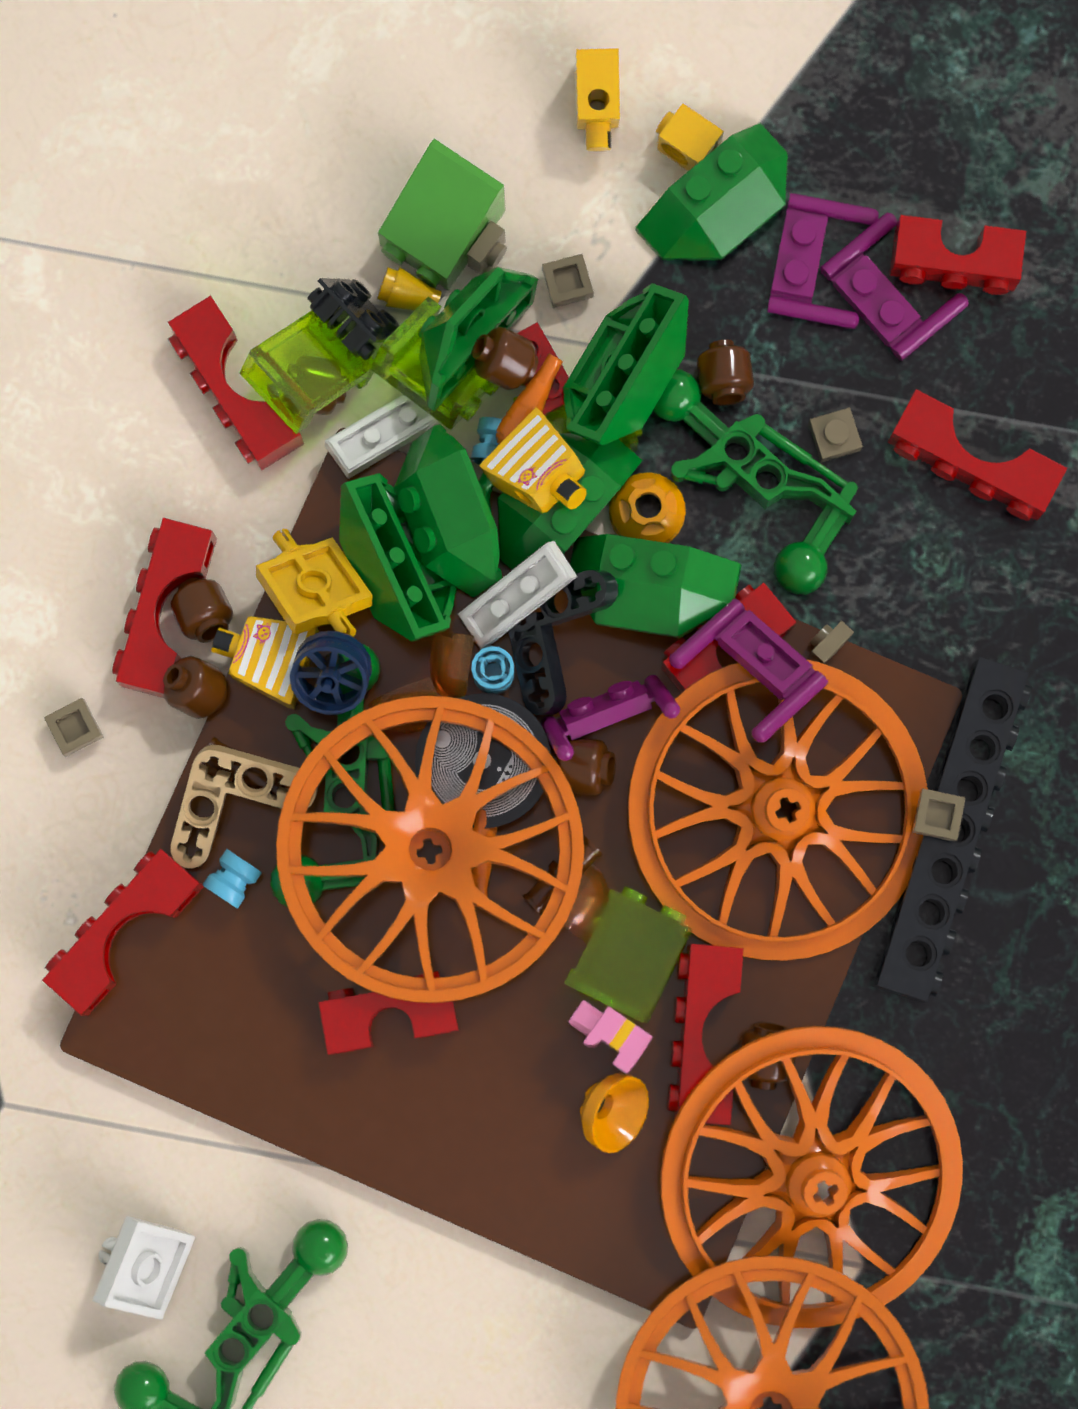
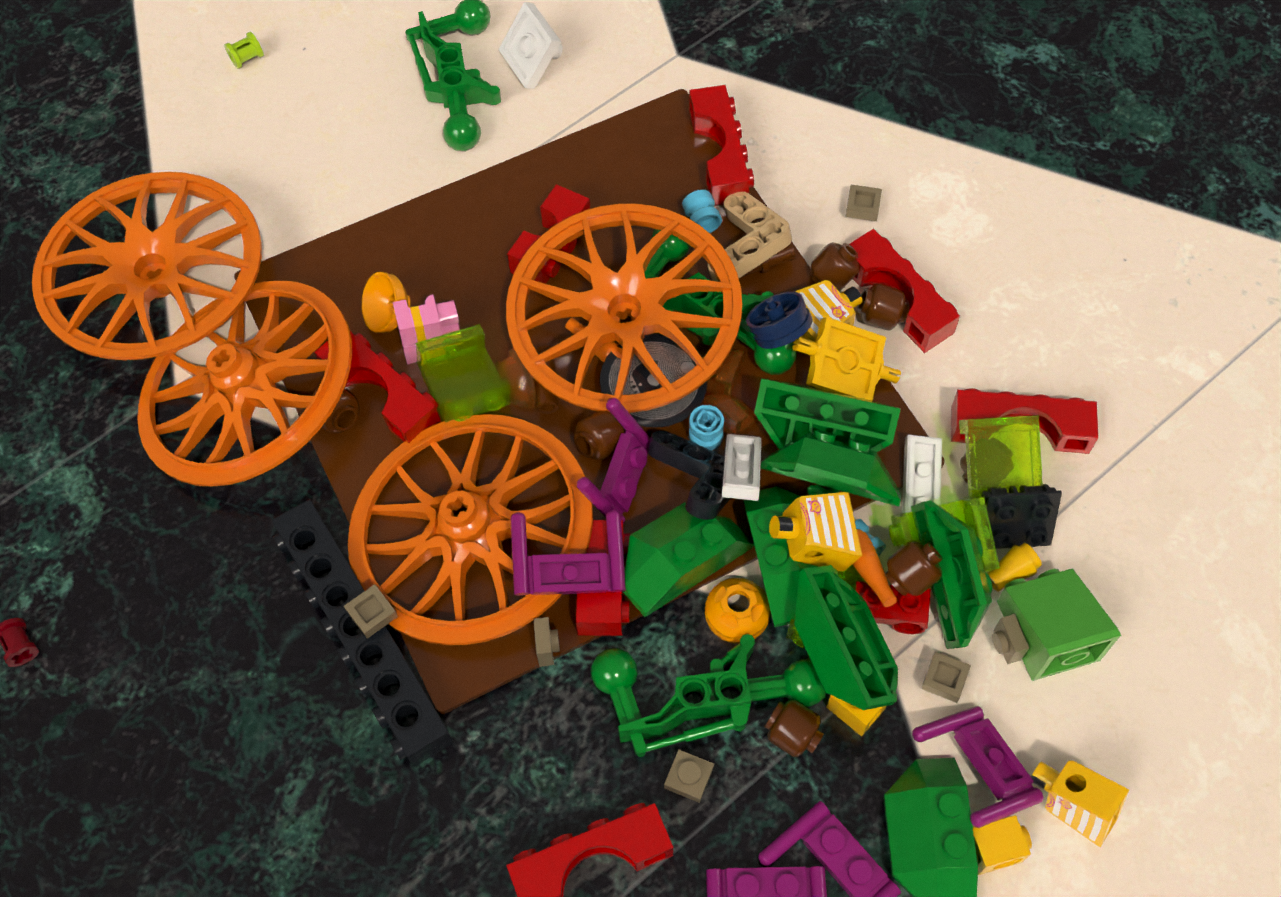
camera: 130 degrees right, 20 degrees down
(617, 192) = (991, 759): none -> magenta plate

